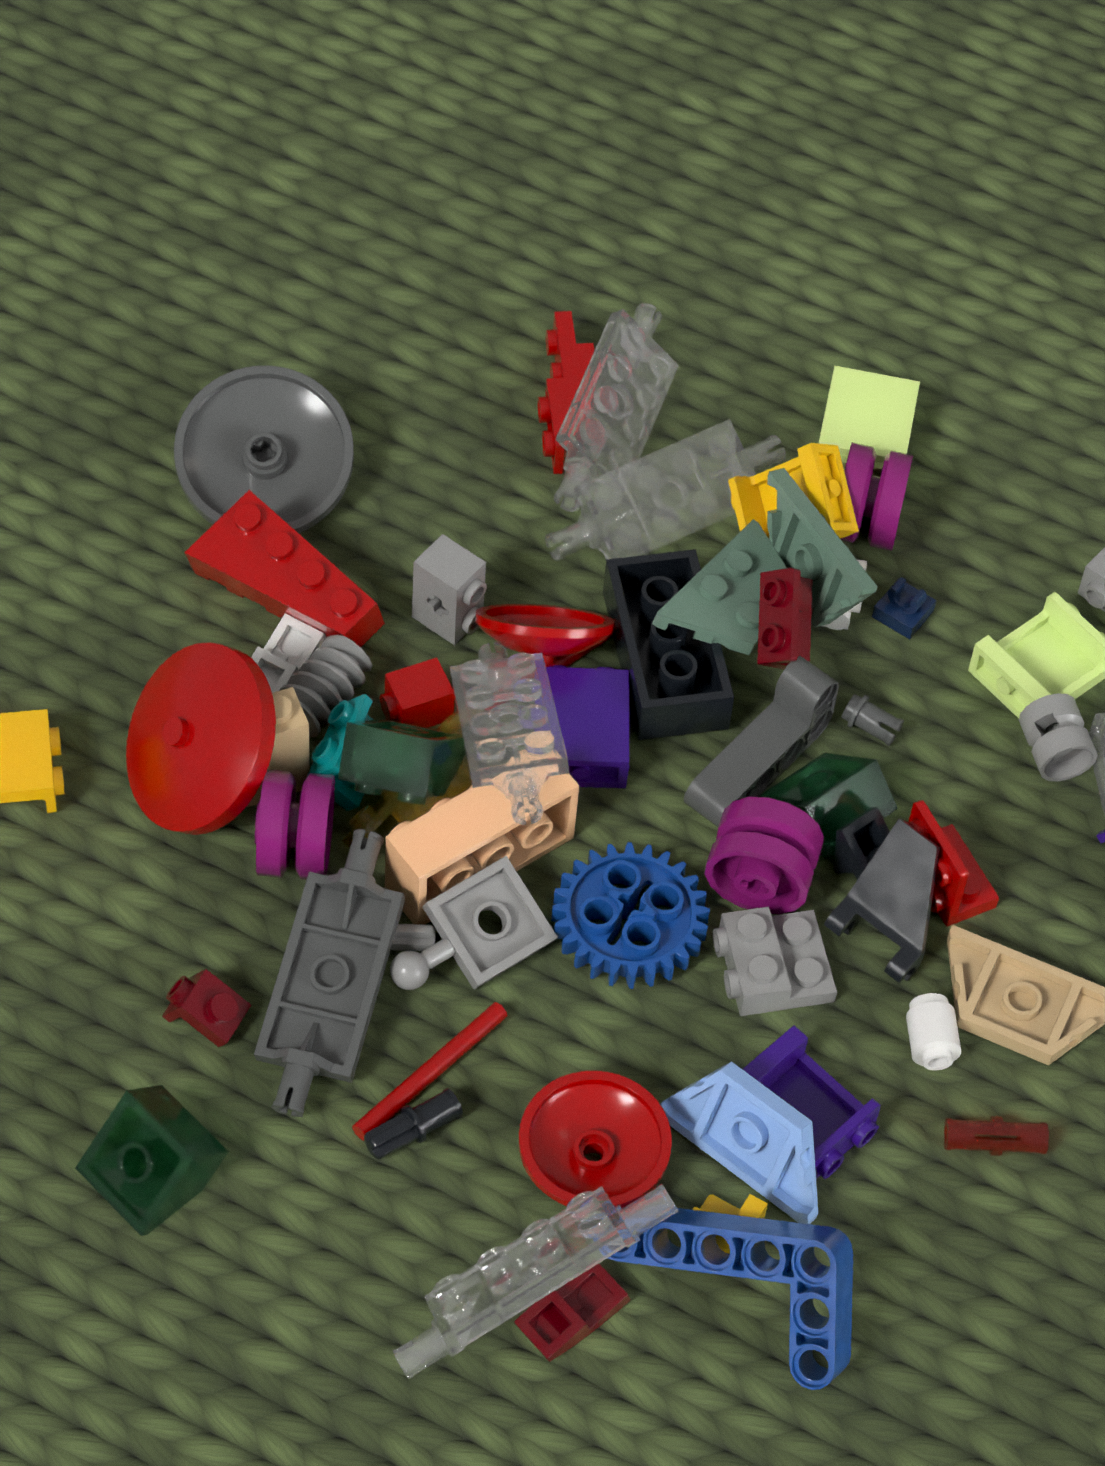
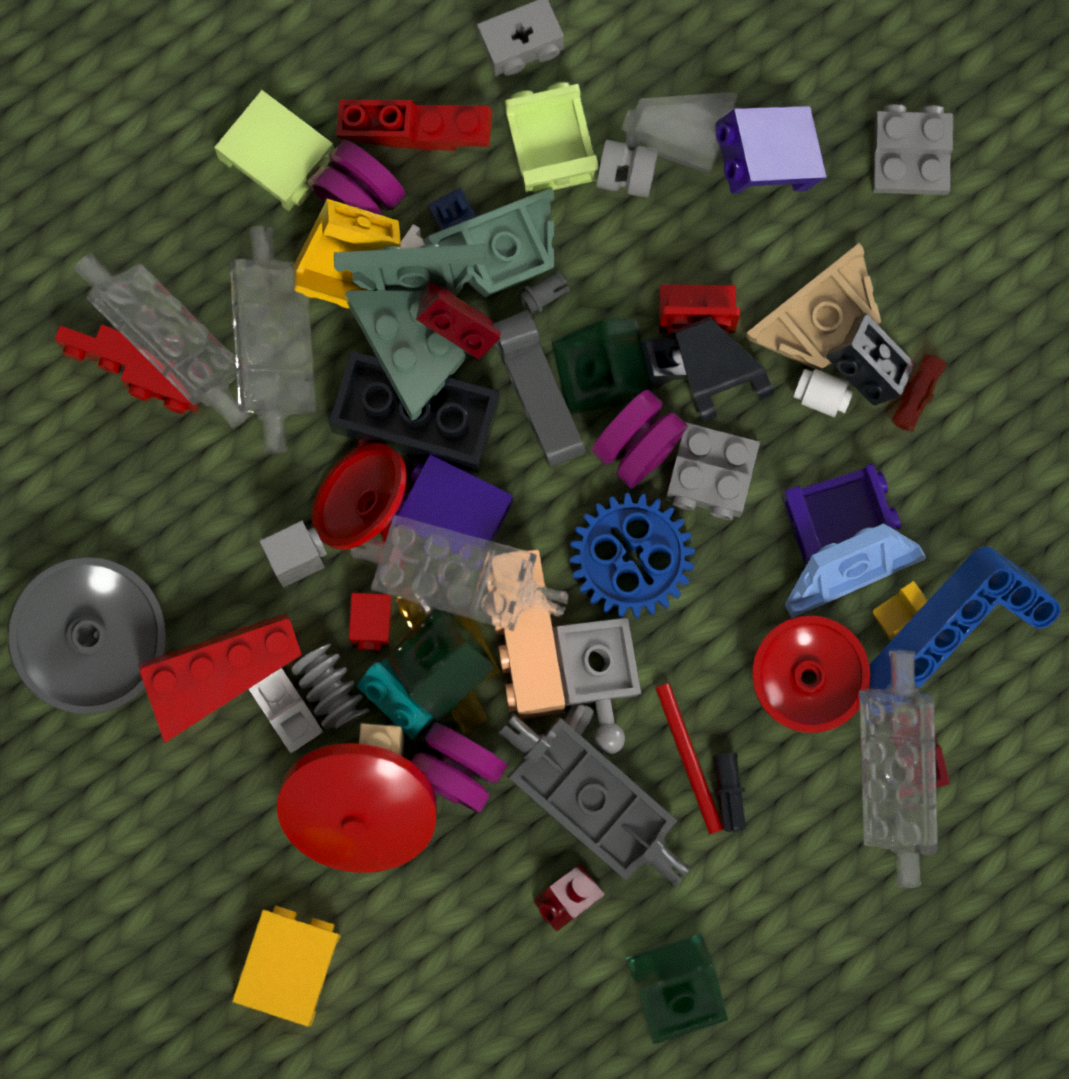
camera: 60 degrees left, 25 degrees up
(901, 657) = (514, 240): none -> sand green wing
(971, 531) = (414, 126): none -> red slope
(1000, 1060) = (872, 361): none -> black bracket

